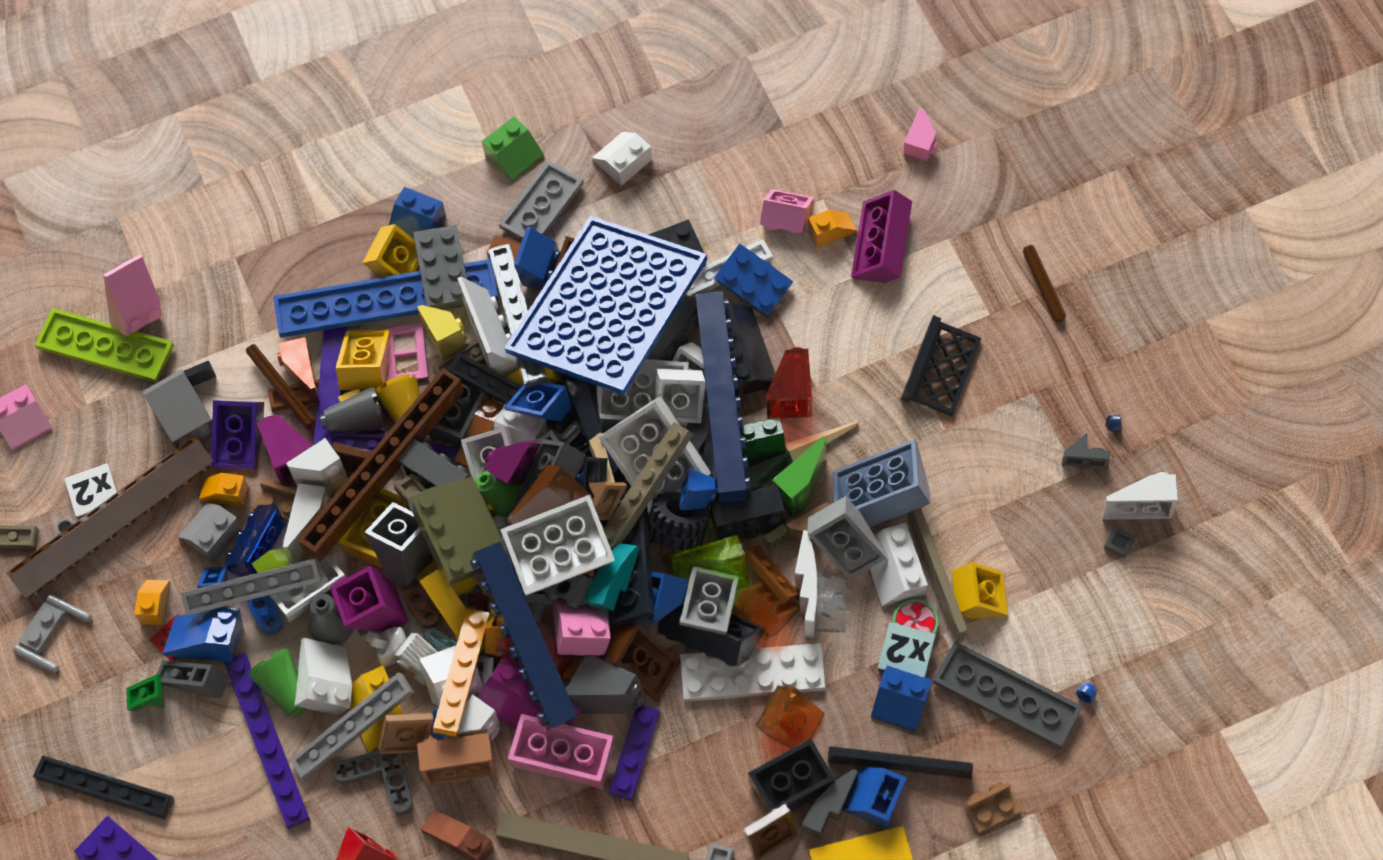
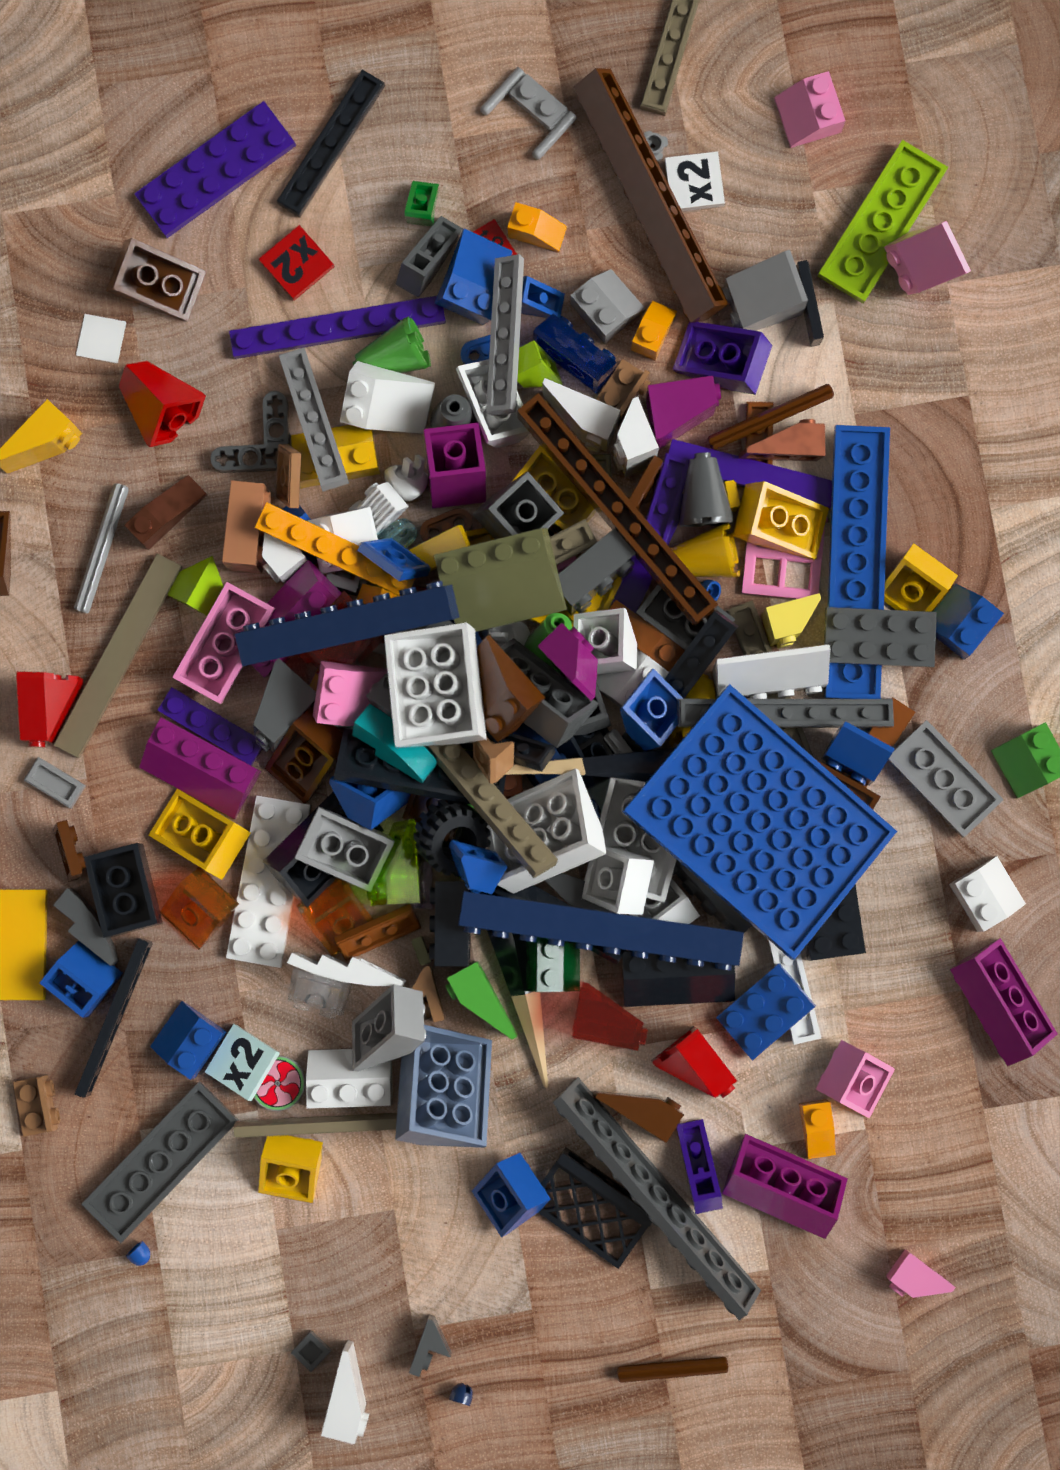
camera: 105 degrees right, 20 degrees up
(215, 787) = (296, 262): none -> red tile
(458, 623) = (394, 559): none -> blue tile
(517, 791) = (198, 586): none -> lime slope
(672, 750) = (198, 768): none -> magenta slope
(701, 127) = (1004, 1002): none -> magenta slope
(727, 735) = (199, 834): none -> yellow slope
(805, 318) = (696, 1064): none -> red slope
(855, 342) = (648, 1112): none -> reddish brown slope
(886, 298) = (699, 1167): none -> dark purple slope
(916, 320) = (657, 1198): none -> dark grey plate
(949, 422) = (510, 1194): none -> blue slope

